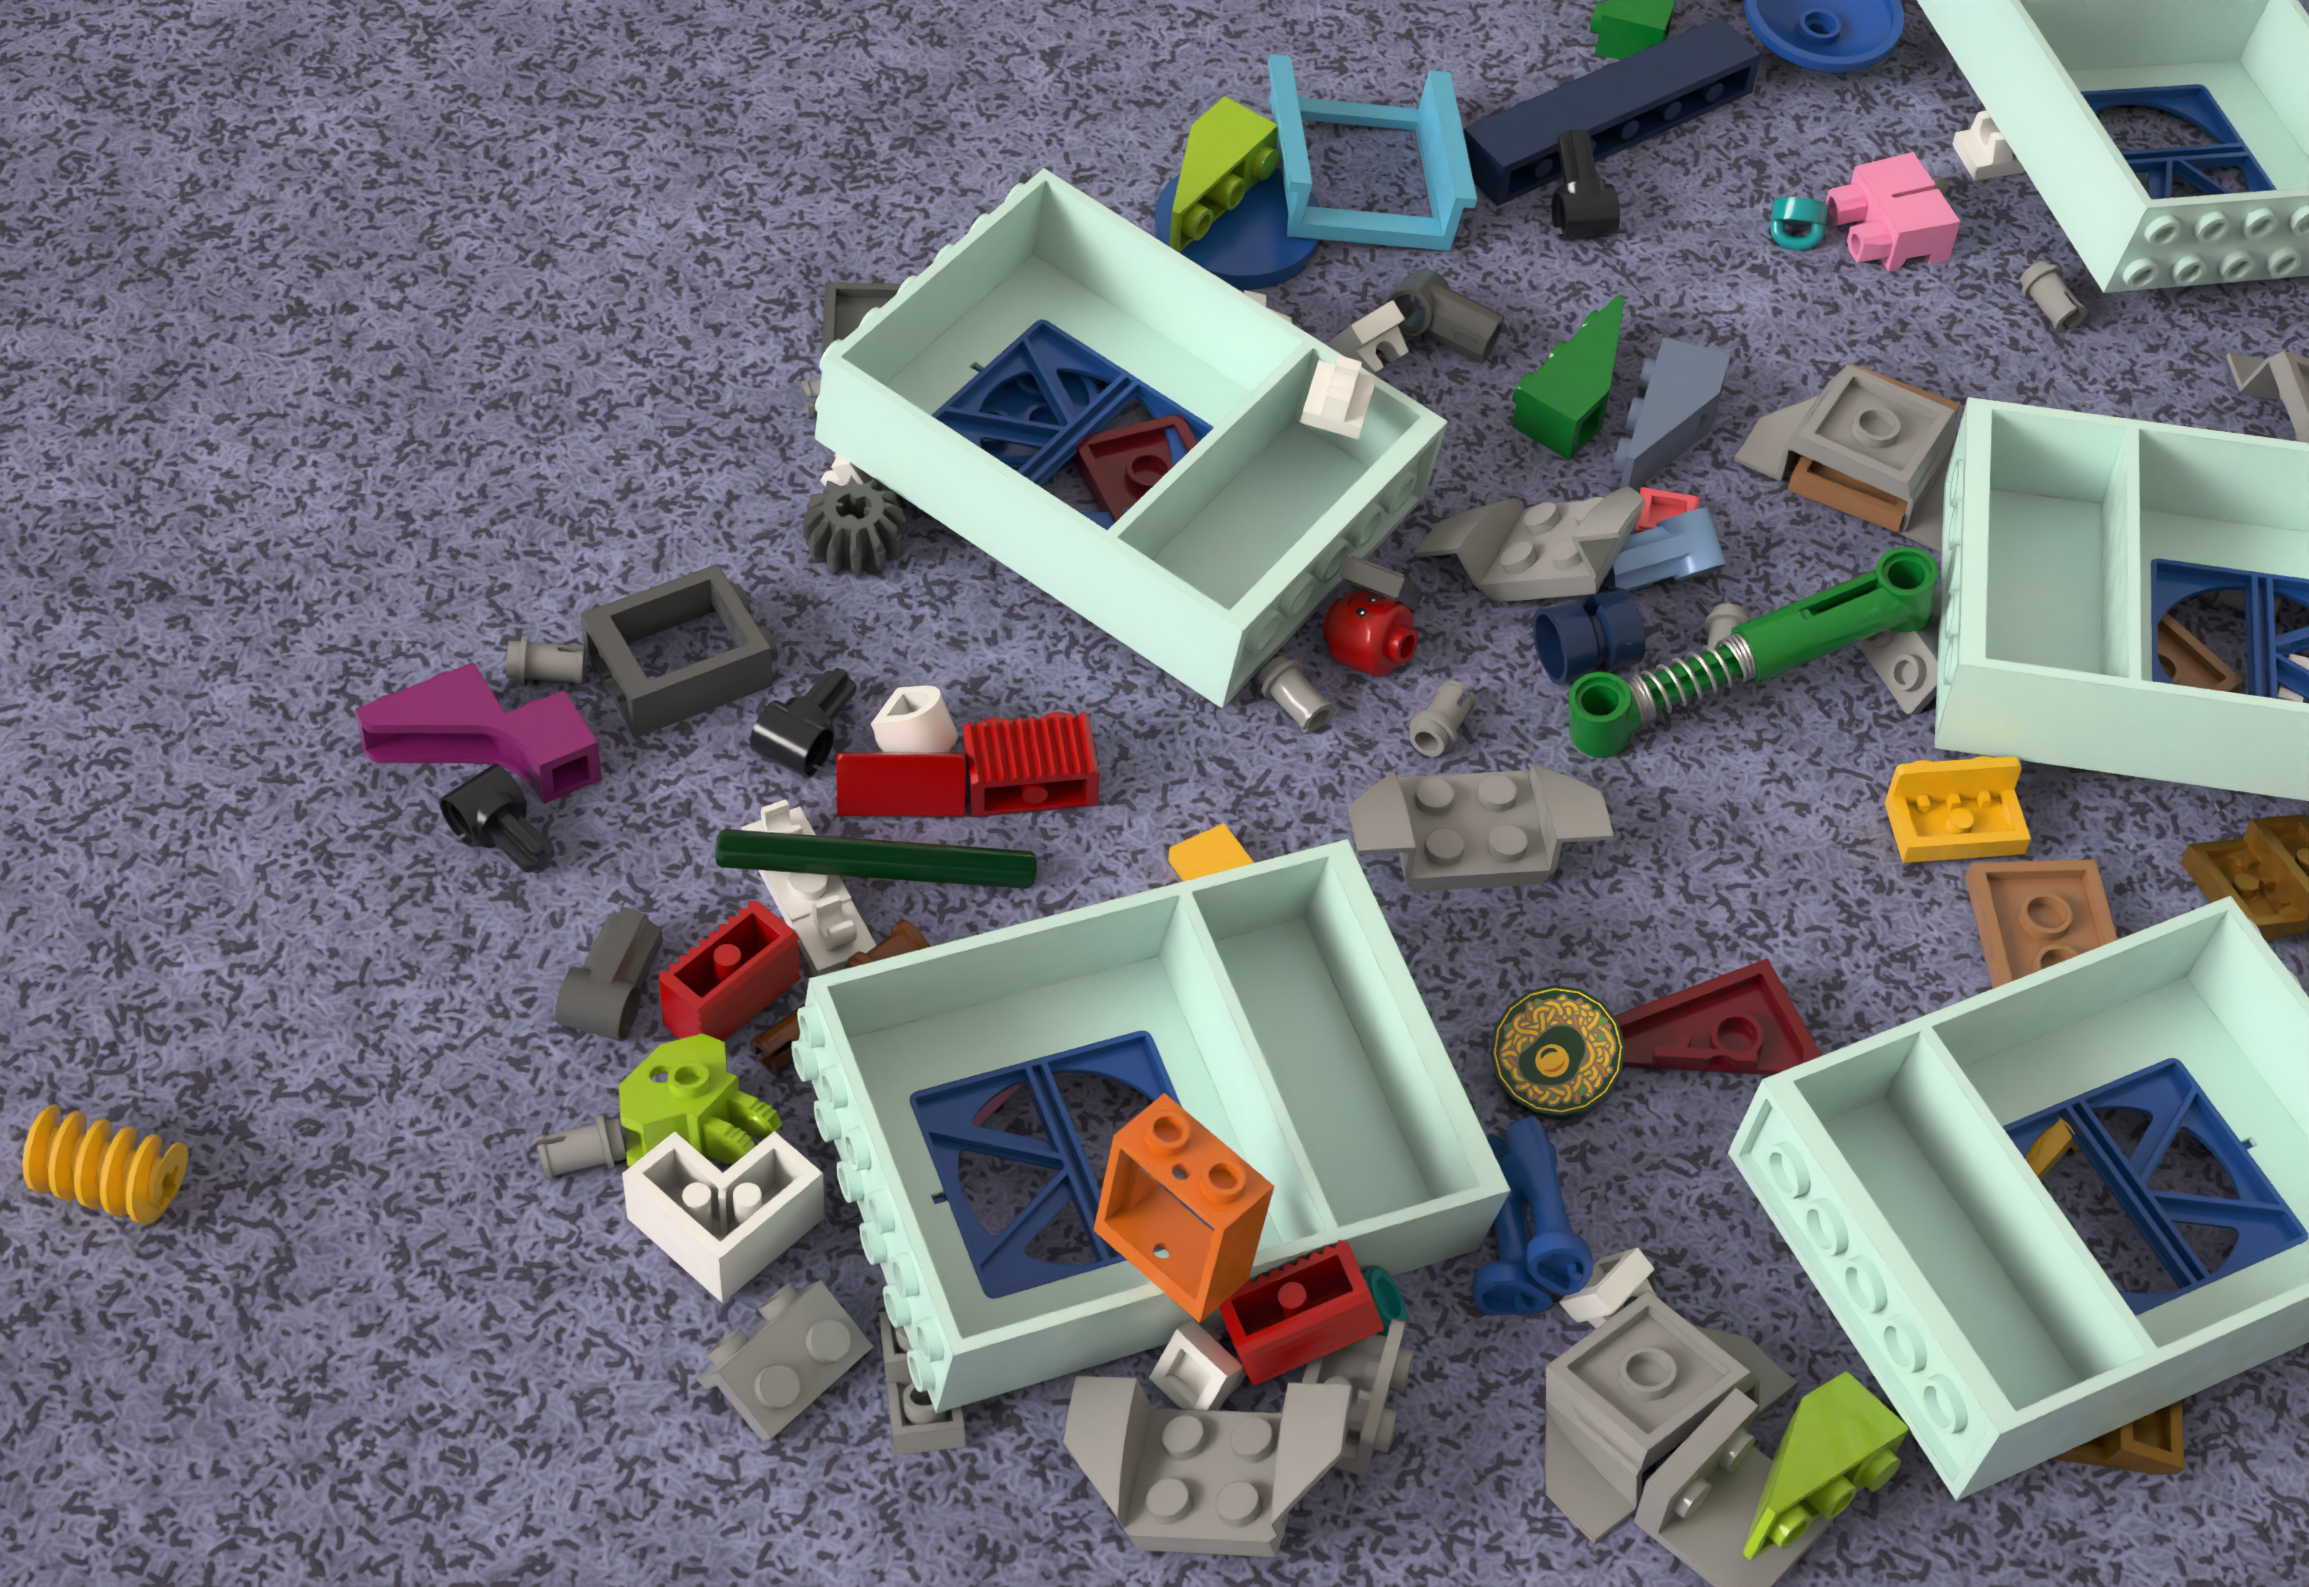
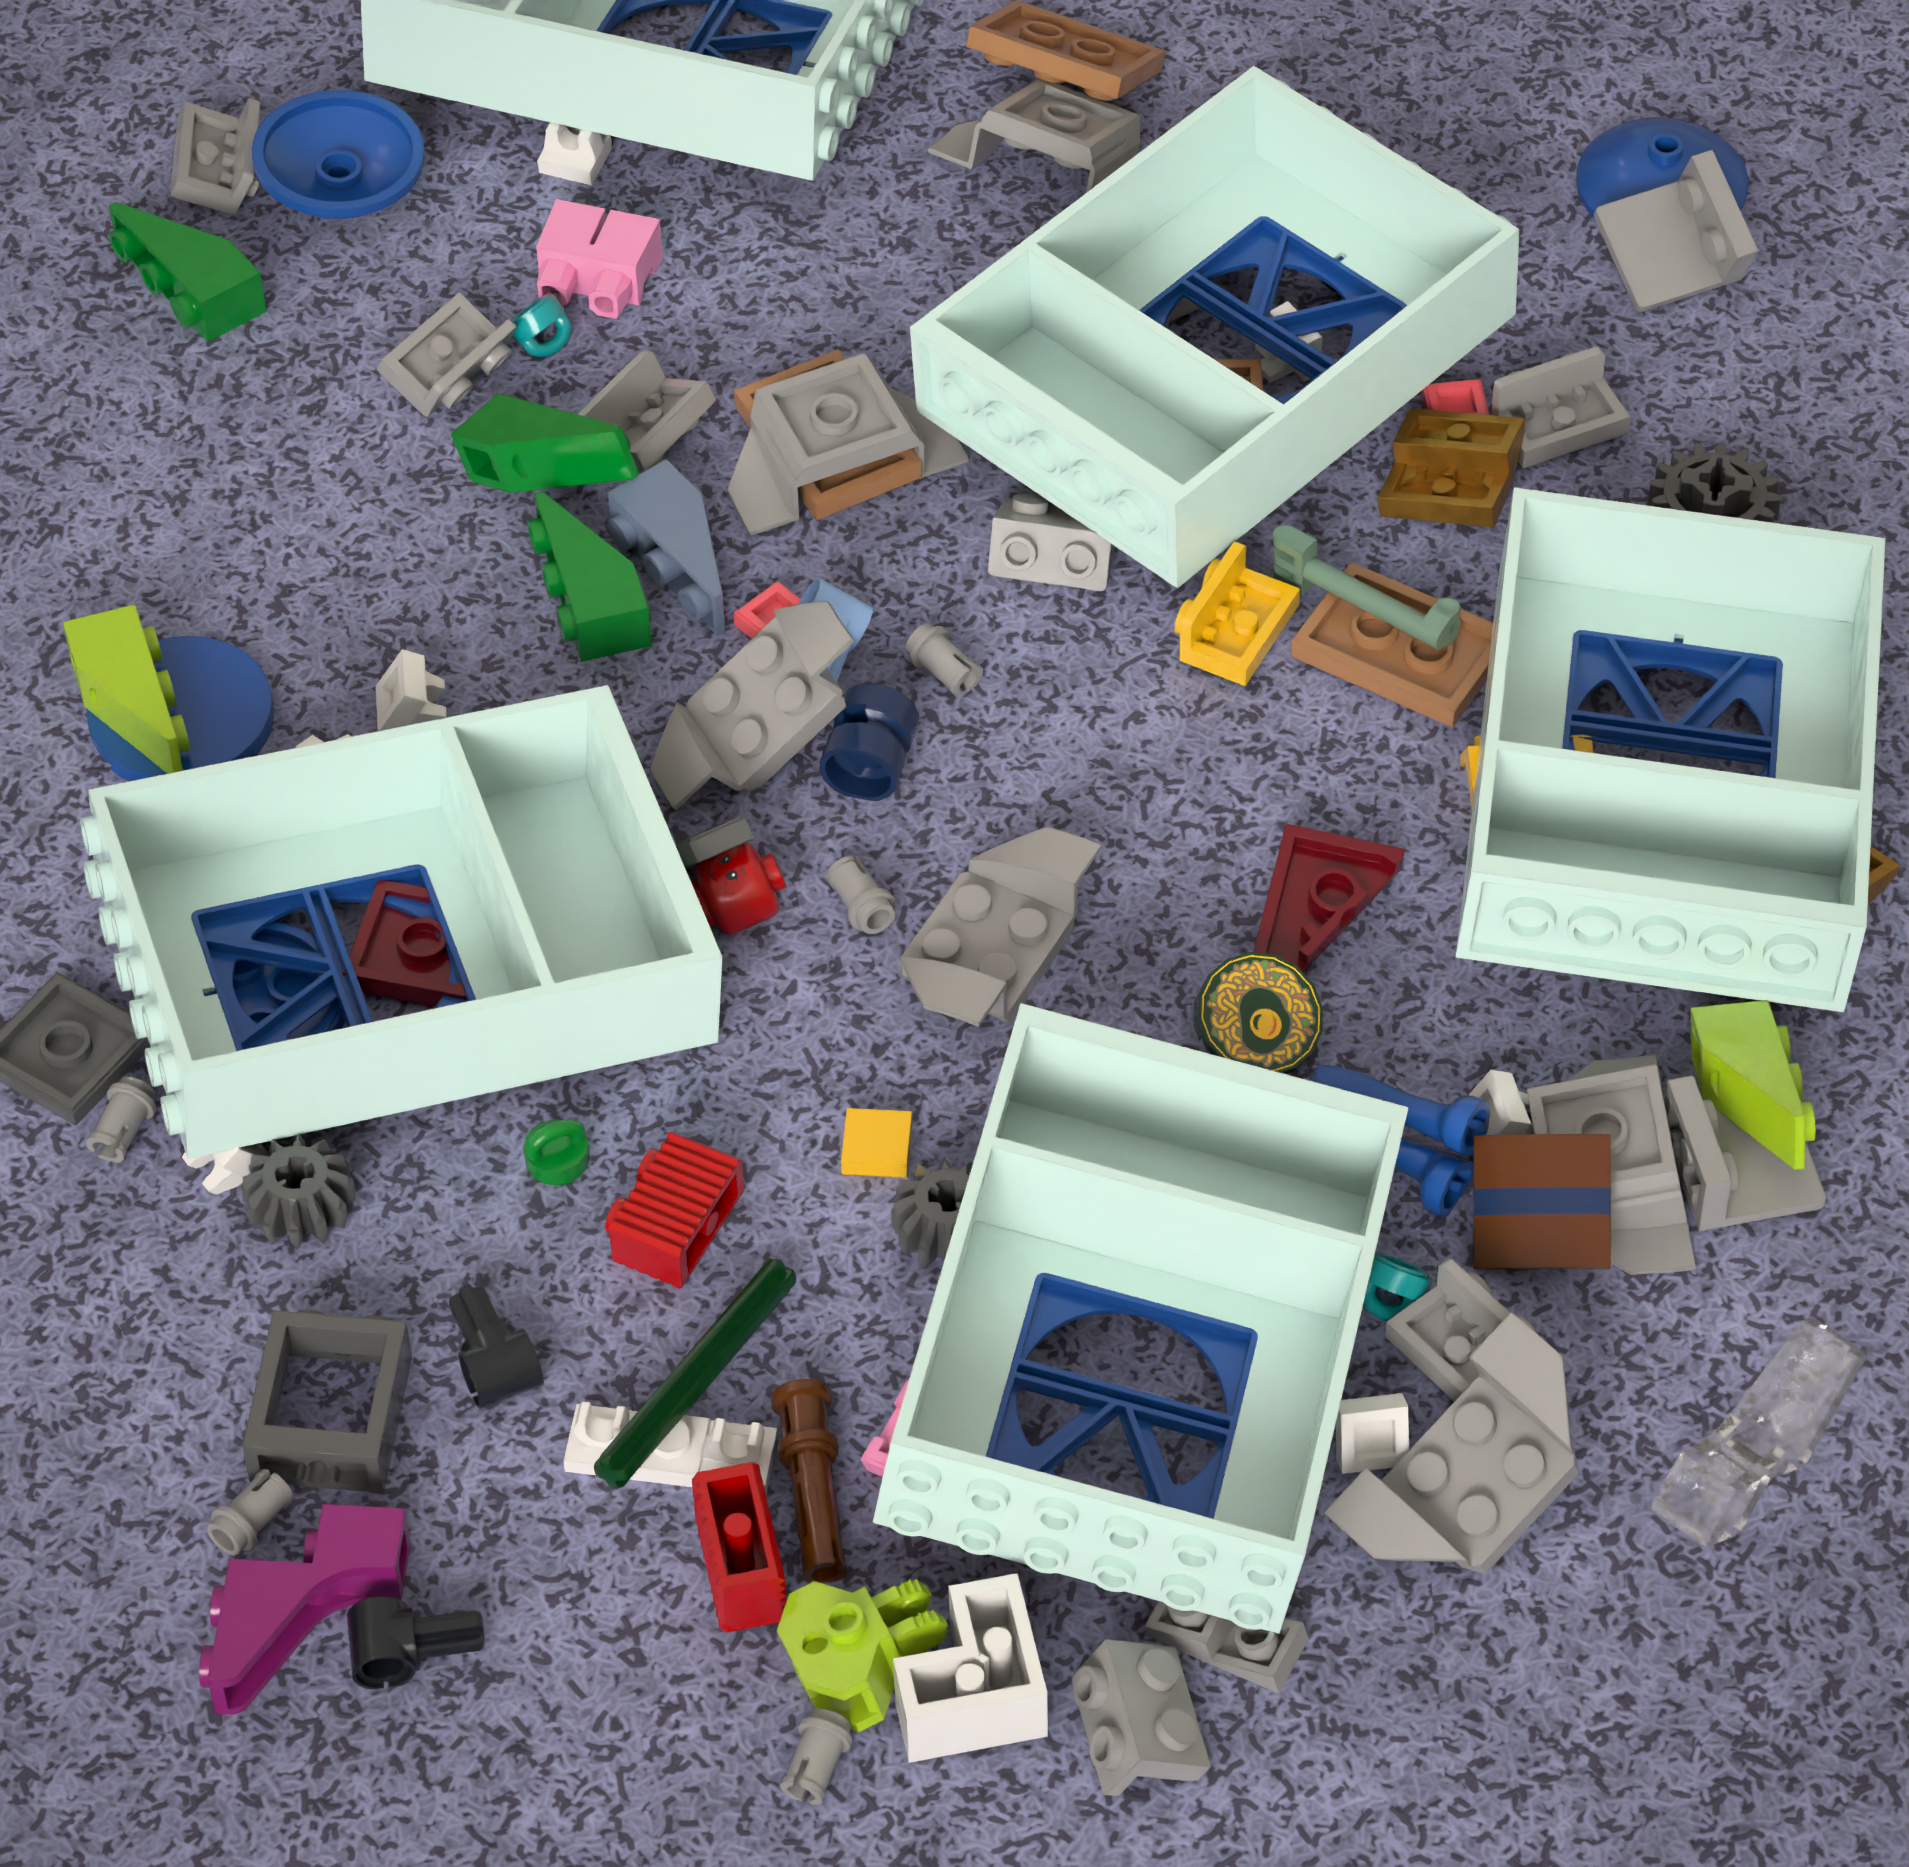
camera: 50 degrees left, 0 degrees up
(608, 987) = (662, 1652): dark grey piece -> none
(900, 783) = (618, 1312): red slope -> none
(915, 722) = (568, 1267): white plate -> none
(1029, 664) = (556, 1151): none -> green tile
(1141, 1216) = (1352, 1340): orange window -> none
(1285, 683) = (755, 980): light grey pin -> none
(1300, 1313) = (1398, 1318): red brick -> none
(1338, 397) = (530, 740): white tile -> none
(1440, 148) = (234, 512): medium azure piece -> none
(1447, 315) = (433, 626): dark grey piece -> none
(1537, 1369) = (1542, 1201): none -> reddish brown slope
(1584, 203) = (392, 455): black axle -> none
(1614, 104) = (299, 373): dark blue brick -> none
(1667, 274) = (538, 447): none -> green slope
(1710, 182) = (444, 354): none -> light grey bracket
(1771, 321) = (650, 407): none -> light grey bracket
(1891, 597) = (989, 639): green piece -> none
(2051, 836) = (1298, 565): none -> sand green hinge
(2052, 295) = (771, 216): light grey pin -> none

